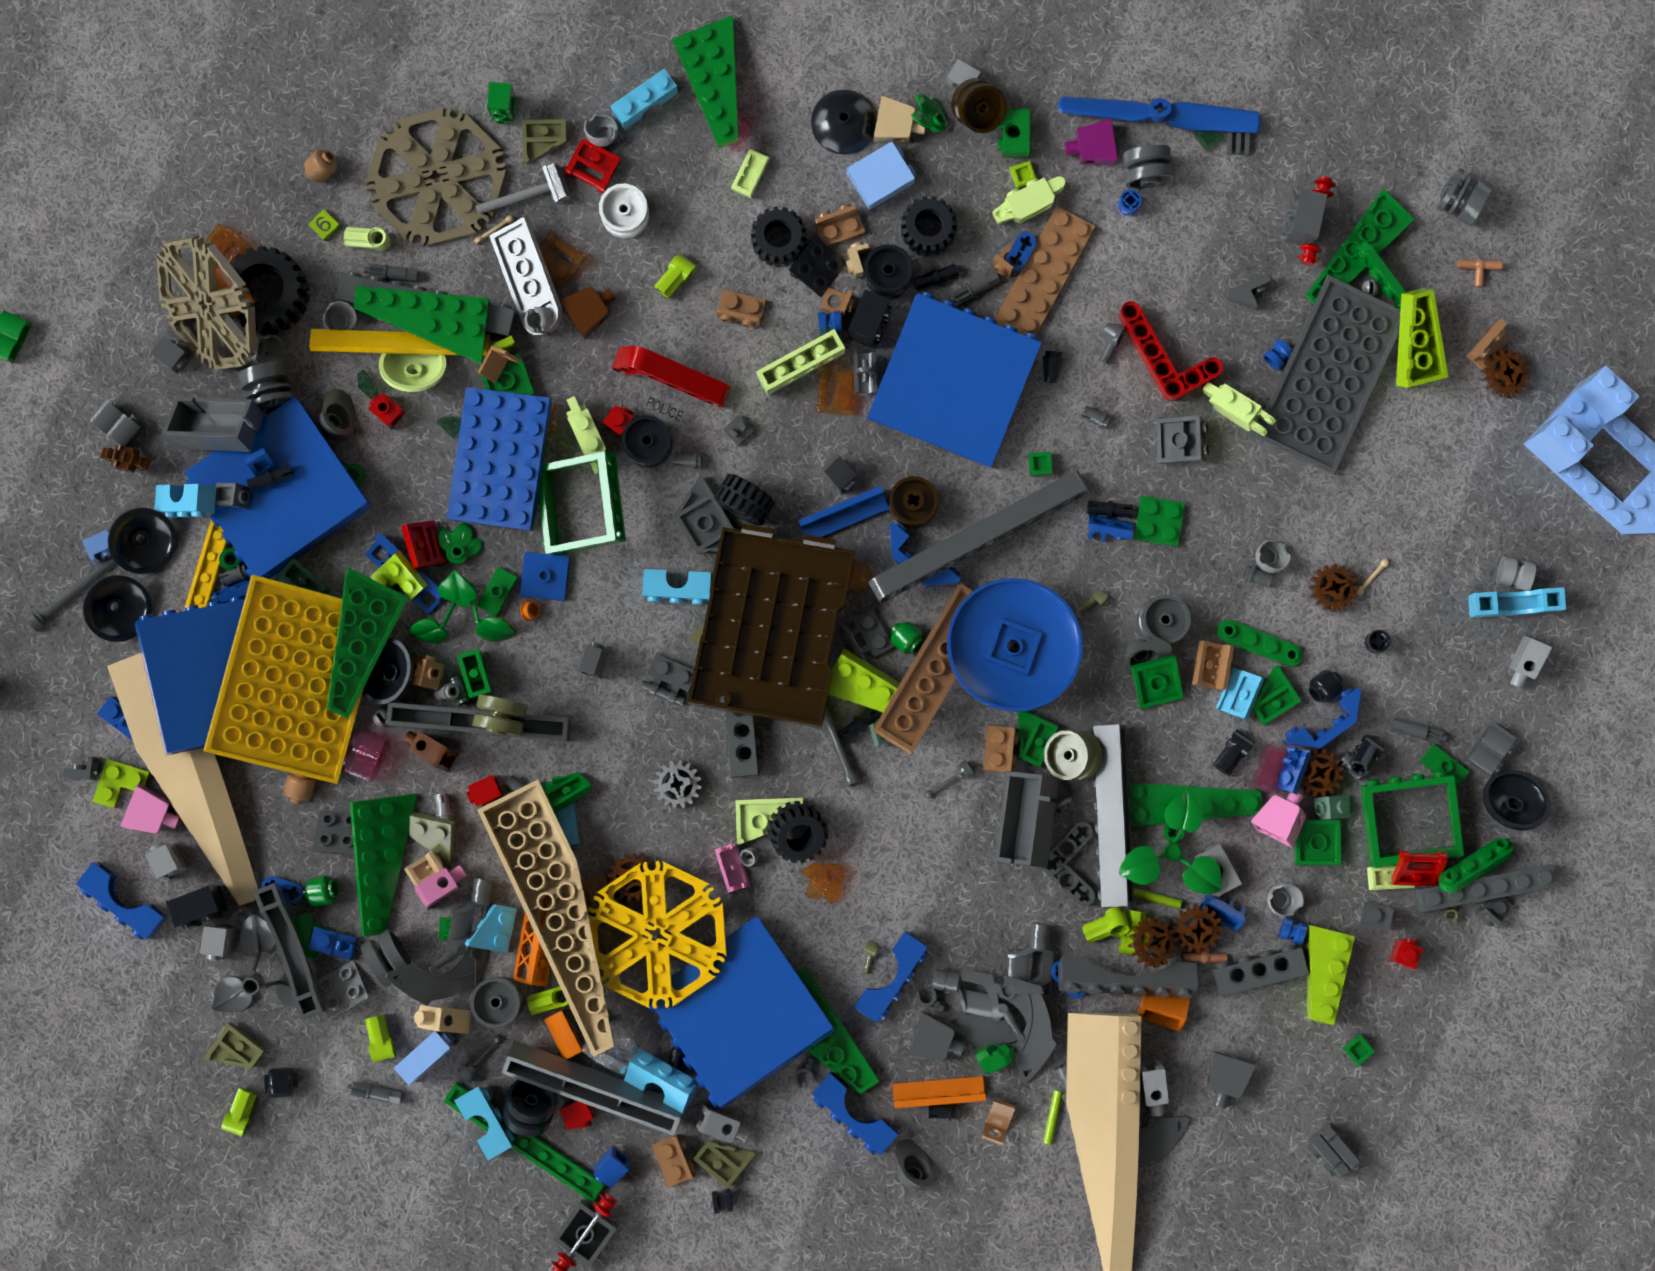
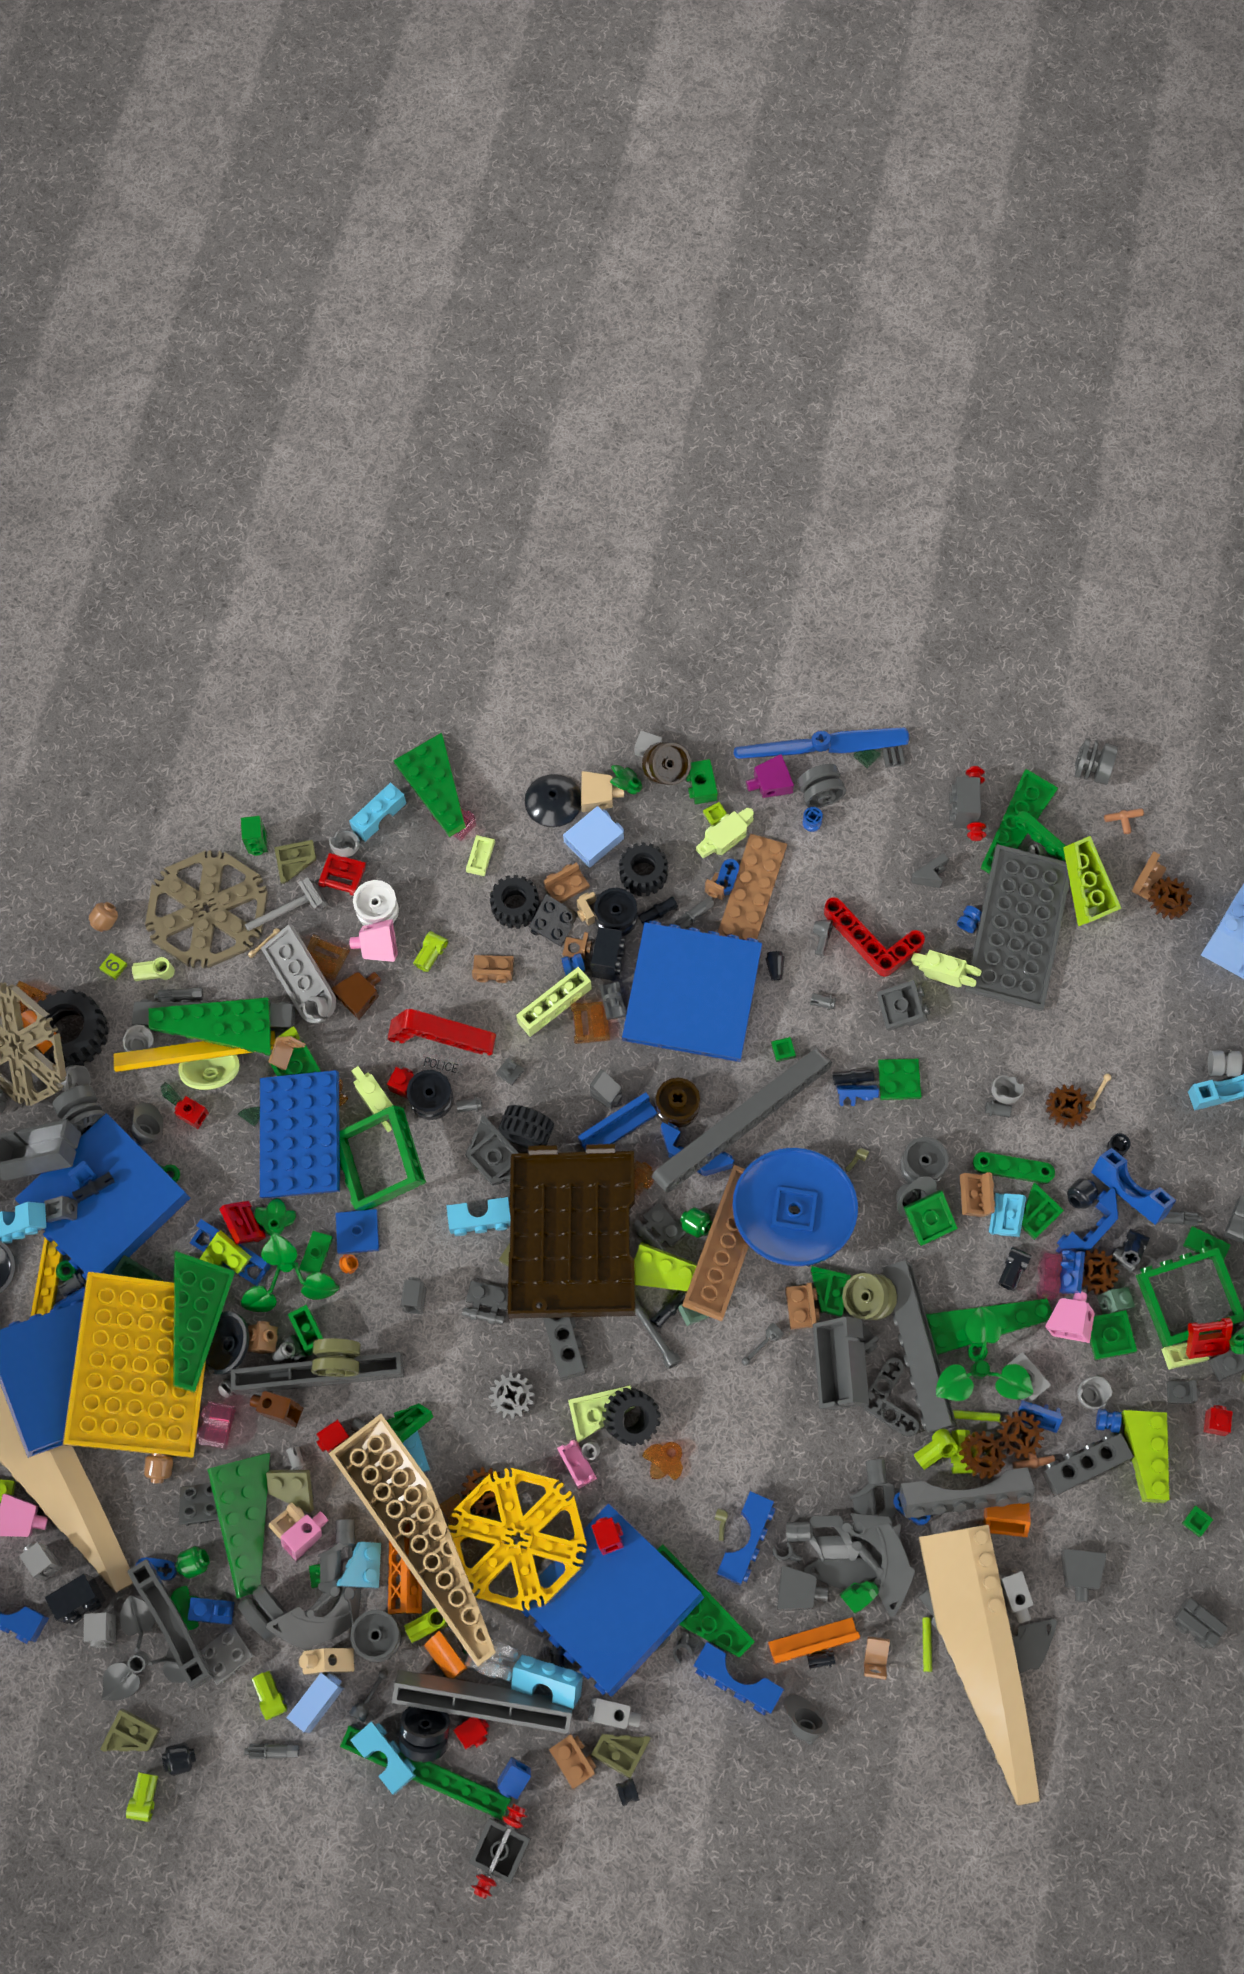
camera: 10 degrees left, 15 degrees down
(618, 254) = (376, 941): none -> bright pink torso
(749, 950) = (608, 1535): none -> red brick
(1364, 671) = (1113, 1171): none -> blue arch

